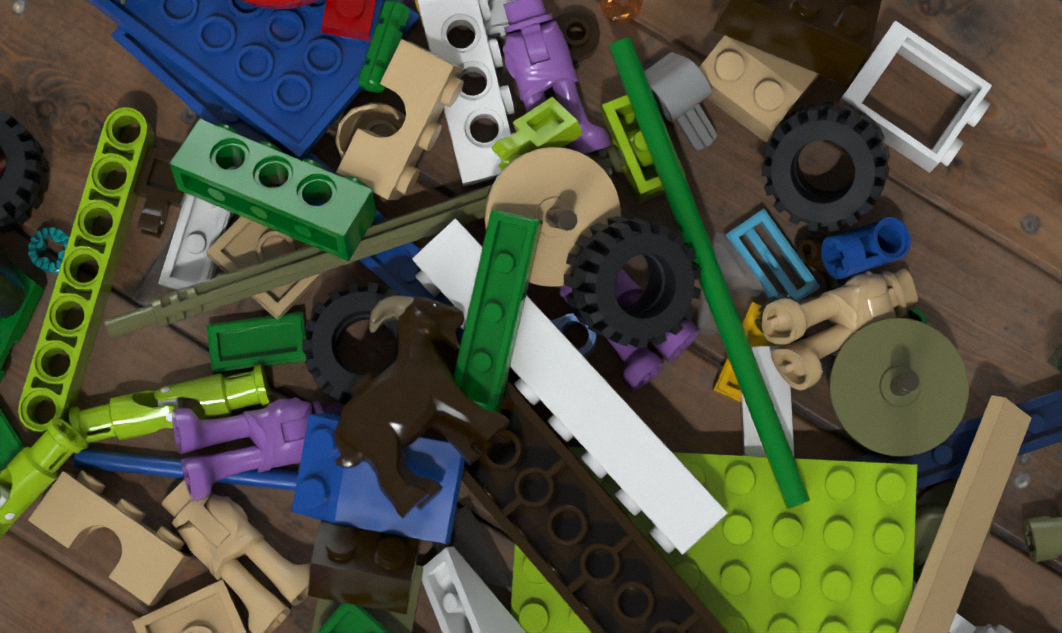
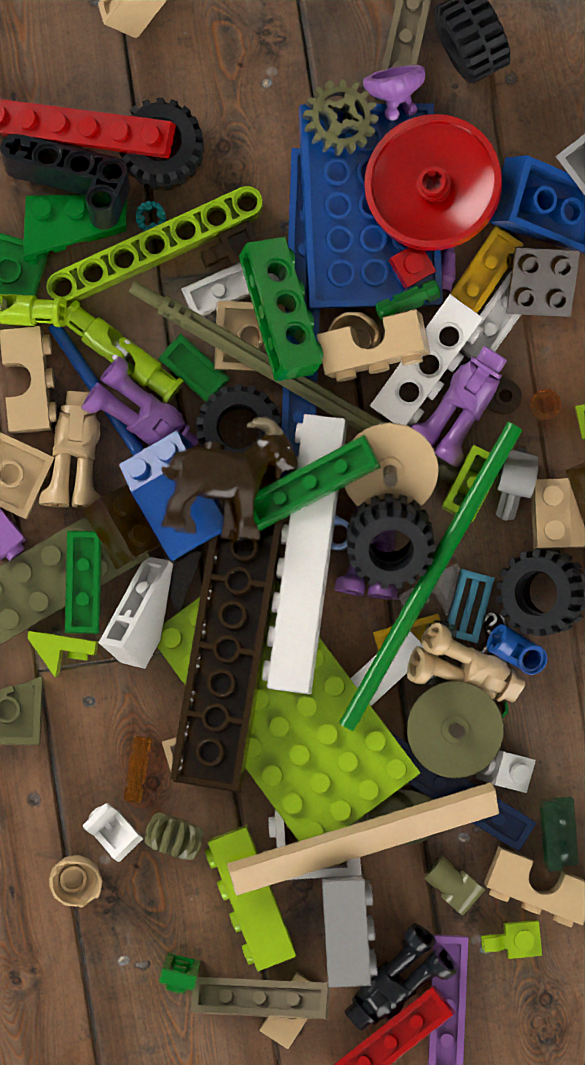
camera: 50 degrees right, 5 degrees up
(540, 128) = (431, 422): lime plate -> none
(992, 369) = (508, 771): none -> white bracket

